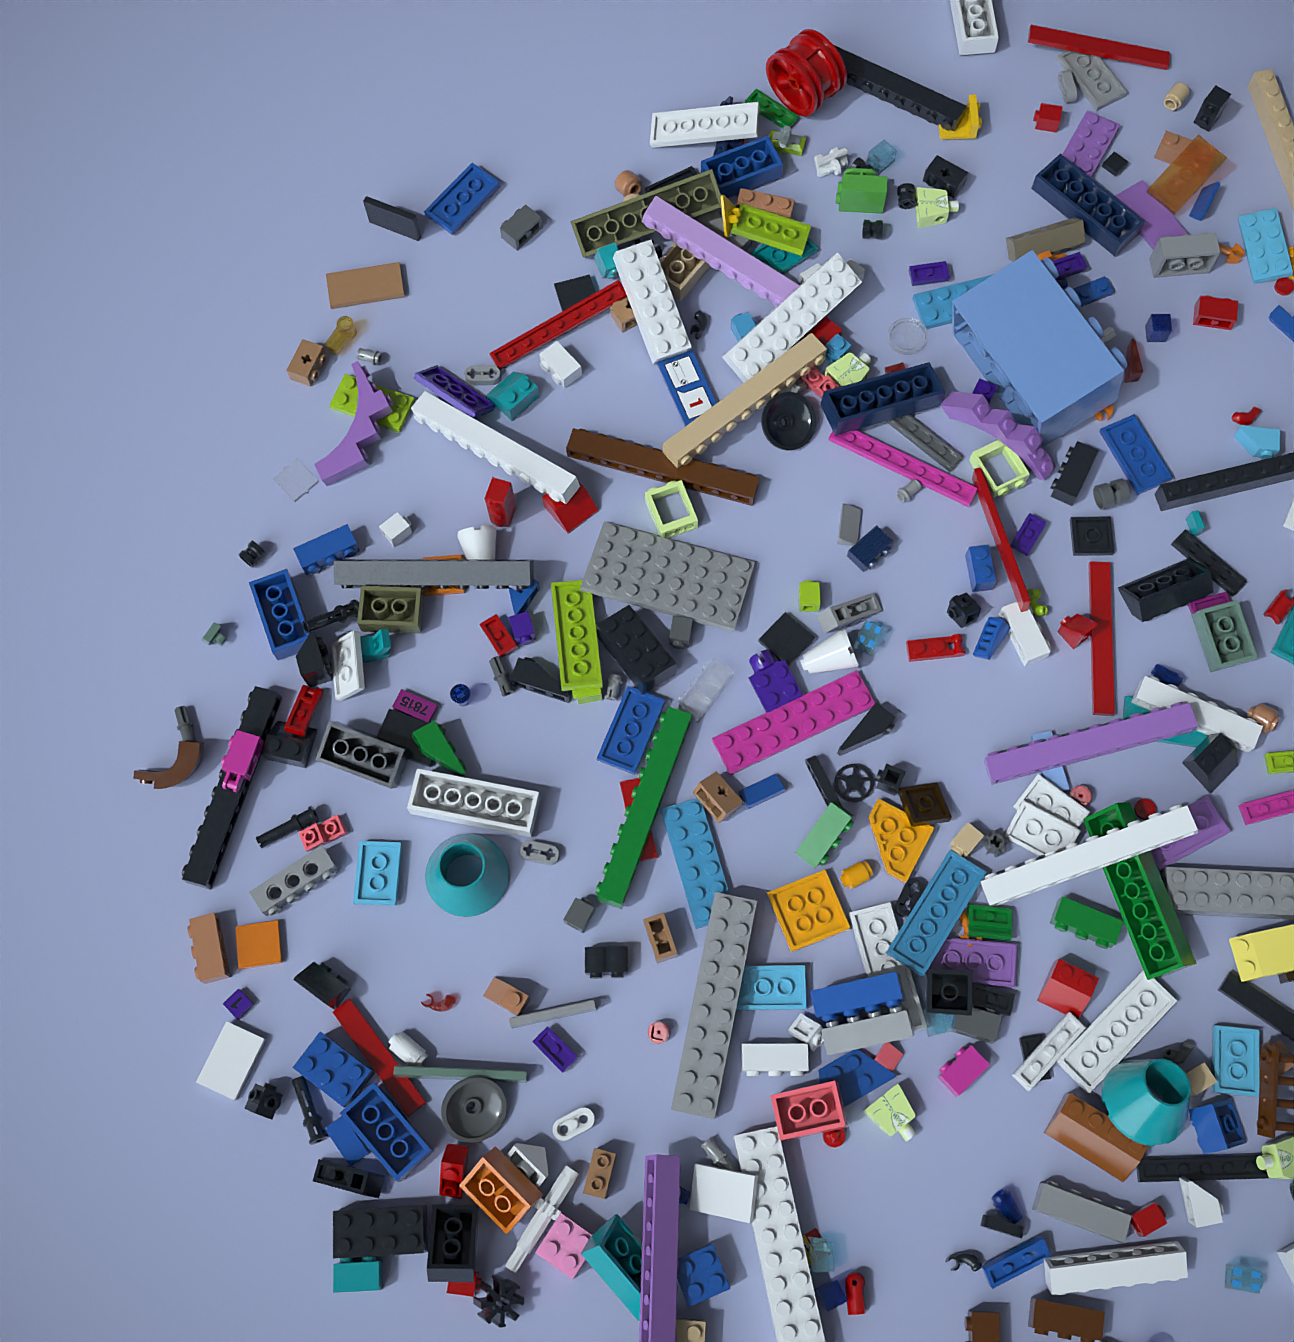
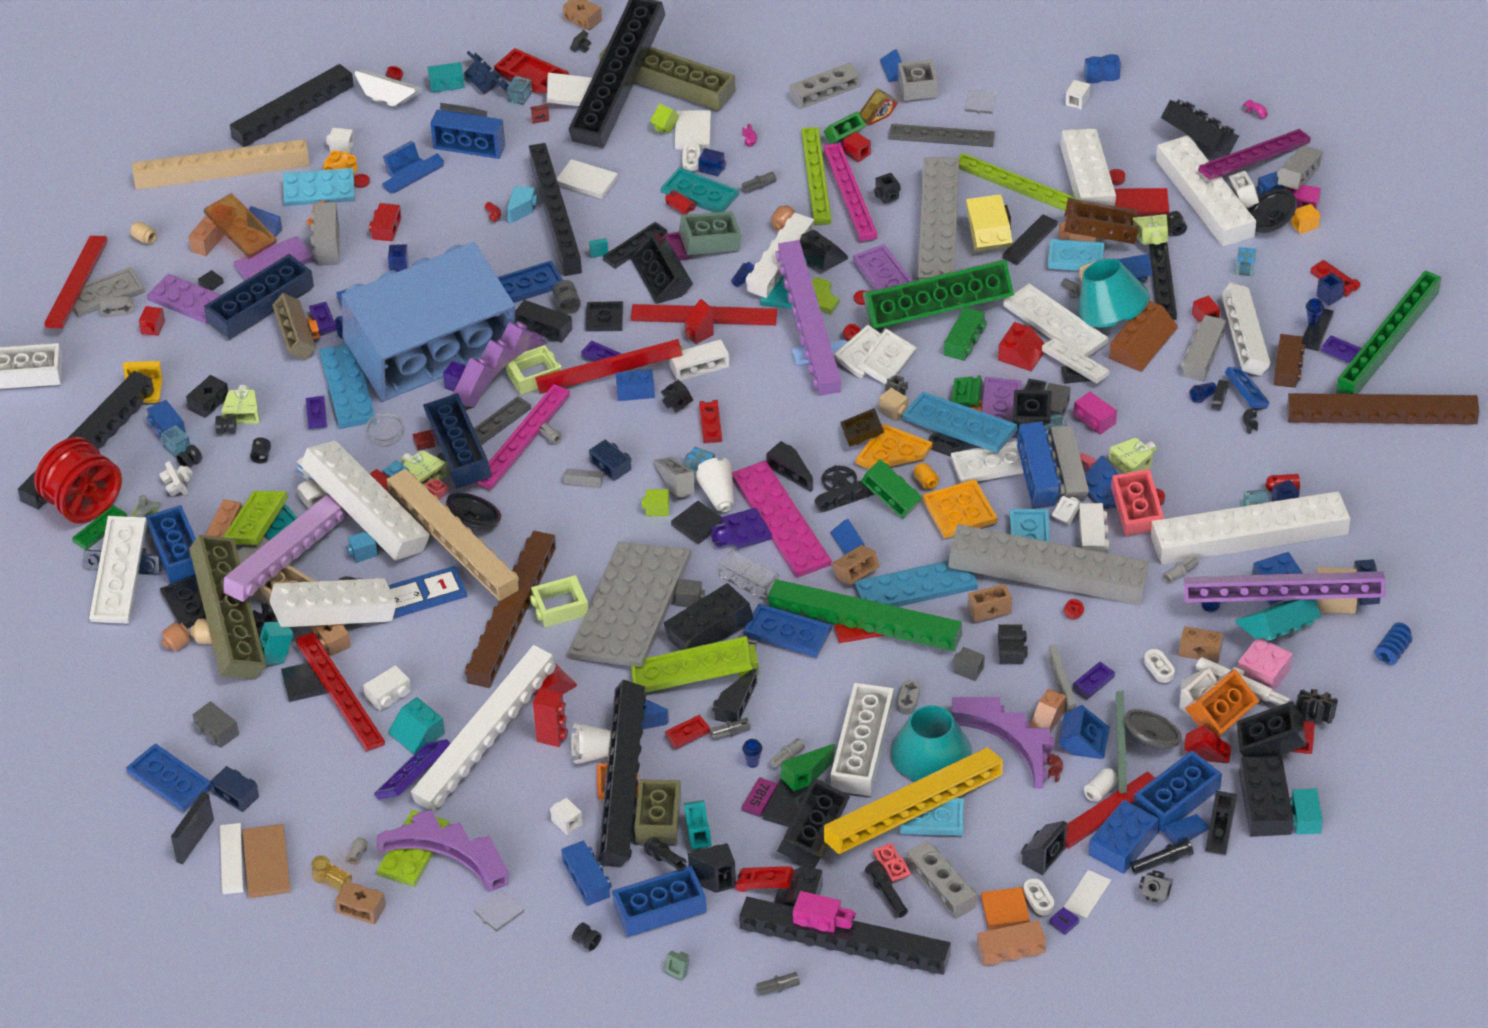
camera: 90 degrees left, 25 degrees down
(187, 762) = (826, 975): reddish brown arch -> none
(231, 1061) = (1119, 922): white tile -> none
(267, 978) = (1039, 898): none -> white plate
(274, 1029) = (1087, 893): none -> white sticker
(347, 665) = (718, 833): white tile -> none
(369, 257) = (231, 858): none -> white tile
(382, 852) = (913, 800): none -> yellow brick
(444, 250) = (234, 788): none -> dark blue brick
(466, 730) = (787, 752): none -> light grey axle
(476, 1035) = (1083, 733): none -> blue slope
(482, 375) = (394, 755): light grey beam -> none
(487, 960) = (990, 716): none -> medium lavender arch
(522, 628) = (680, 710): dark purple brick -> none
(723, 1193) = (1210, 552): white tile -> none
(729, 214) = (243, 541): yellow piece -> none
(861, 191) = (220, 451): bright green brick -> none
(889, 779) = (839, 447): black brick -> none
(910, 144) = (163, 417): none -> blue brick
(993, 631) = (693, 377): blue slope -> none
(1090, 856) = (913, 313): white brick -> none
(1152, 762) = (826, 300): none -> lime tile
(1200, 1205) = (1191, 280): white slope -> none
(1212, 108) = (167, 205): black brick -> none

